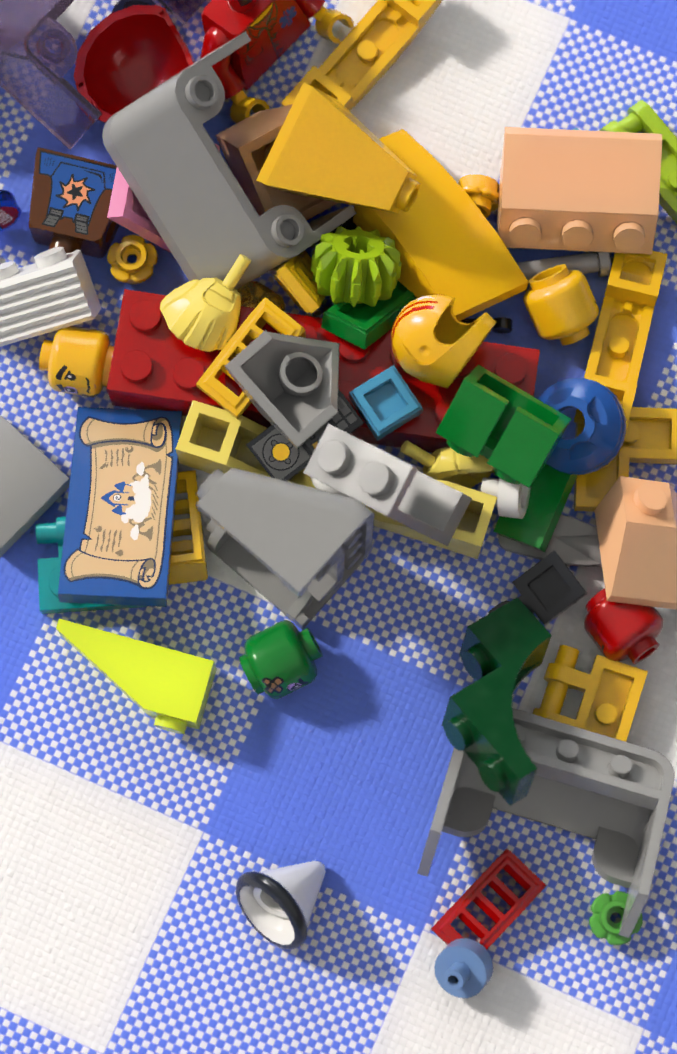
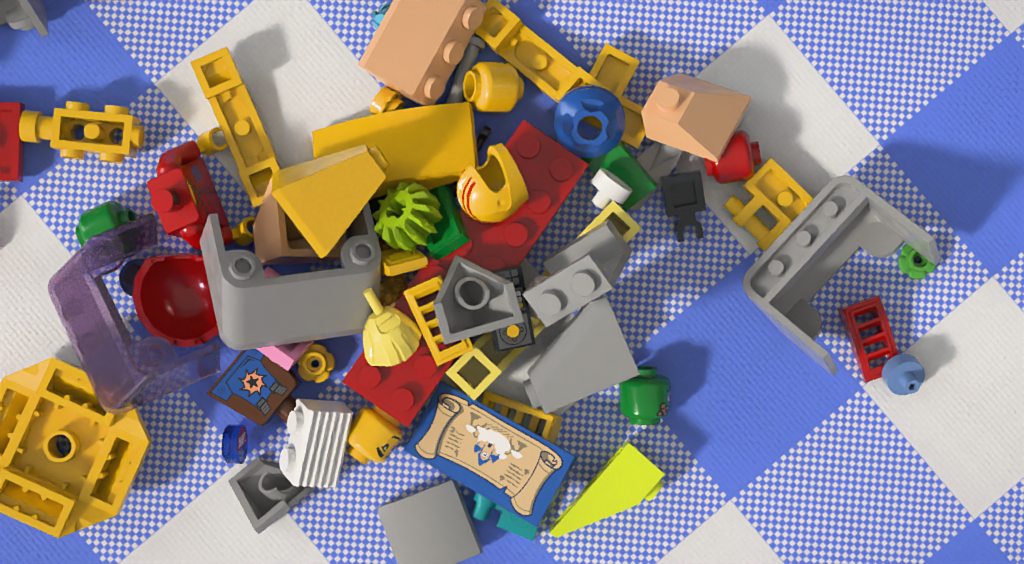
camera: 65 degrees left, 10 degrees up
(281, 901) = (804, 470): white hat -> none
(385, 402) = (513, 243): dark azure tile -> none
(450, 465) = (571, 215): light yellow piece -> none
(480, 717) = (760, 285): dark green arch -> none
(503, 426) = (573, 173): green piece -> none

